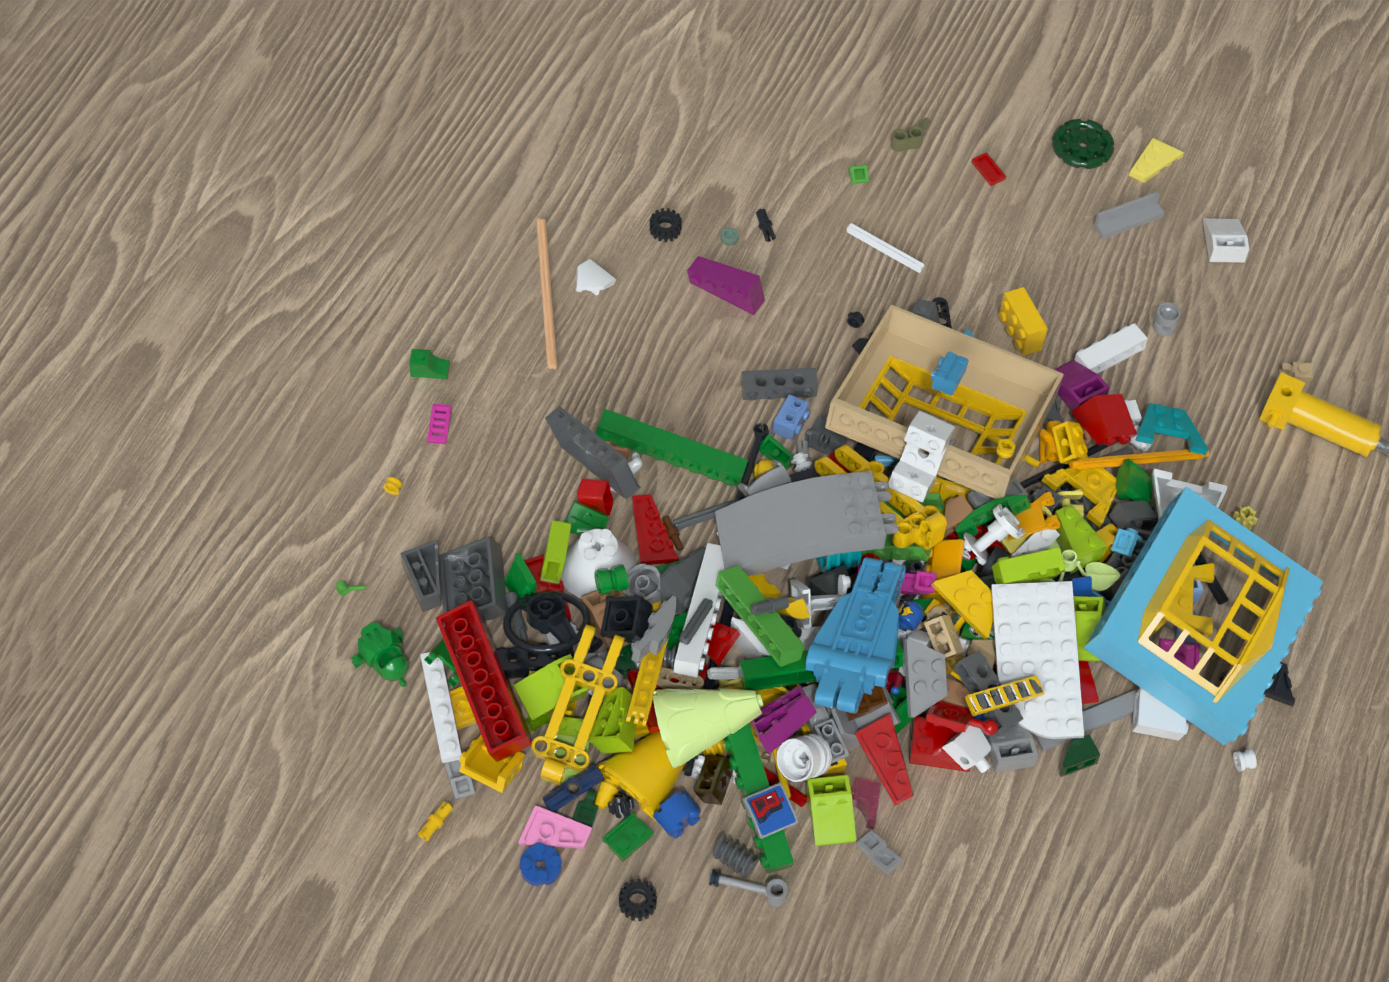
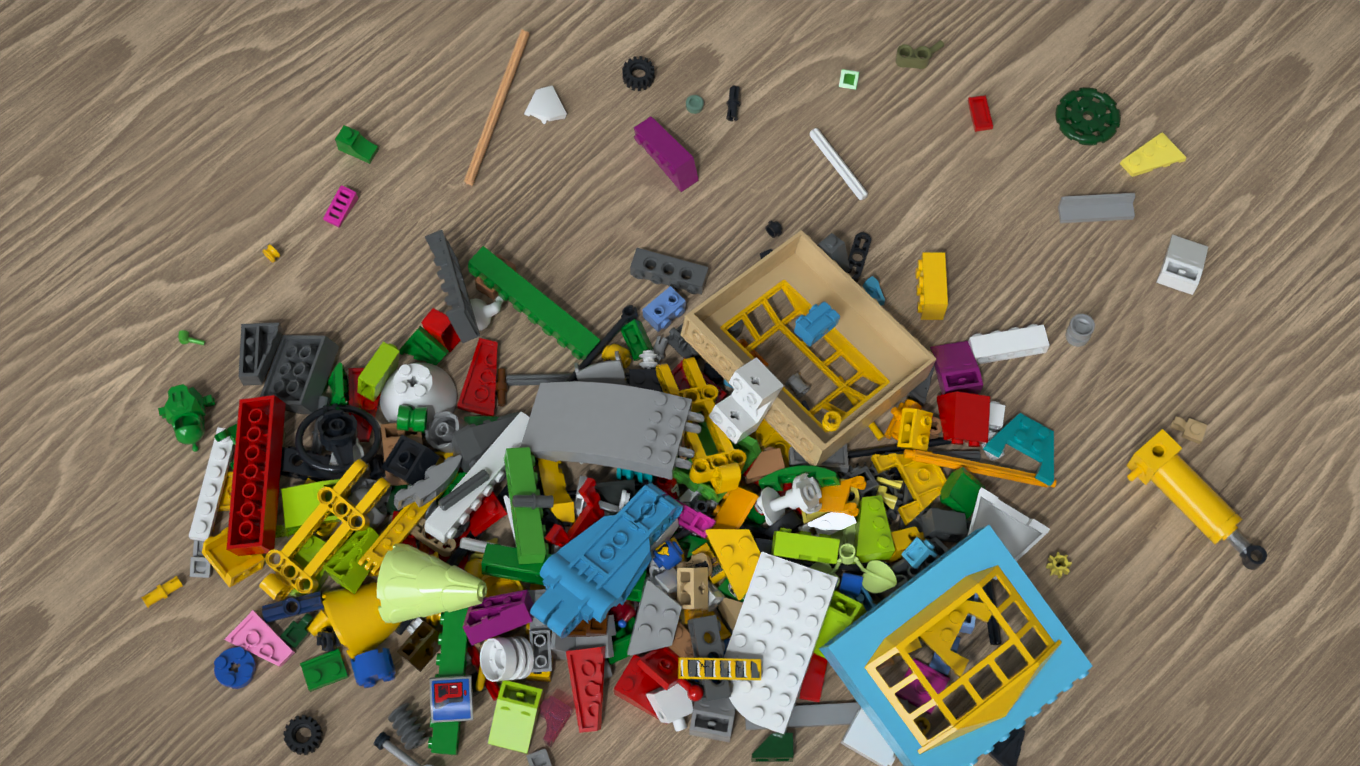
camera: 25 degrees right, 10 degrees up
(820, 609) = (586, 518): none -> red wing

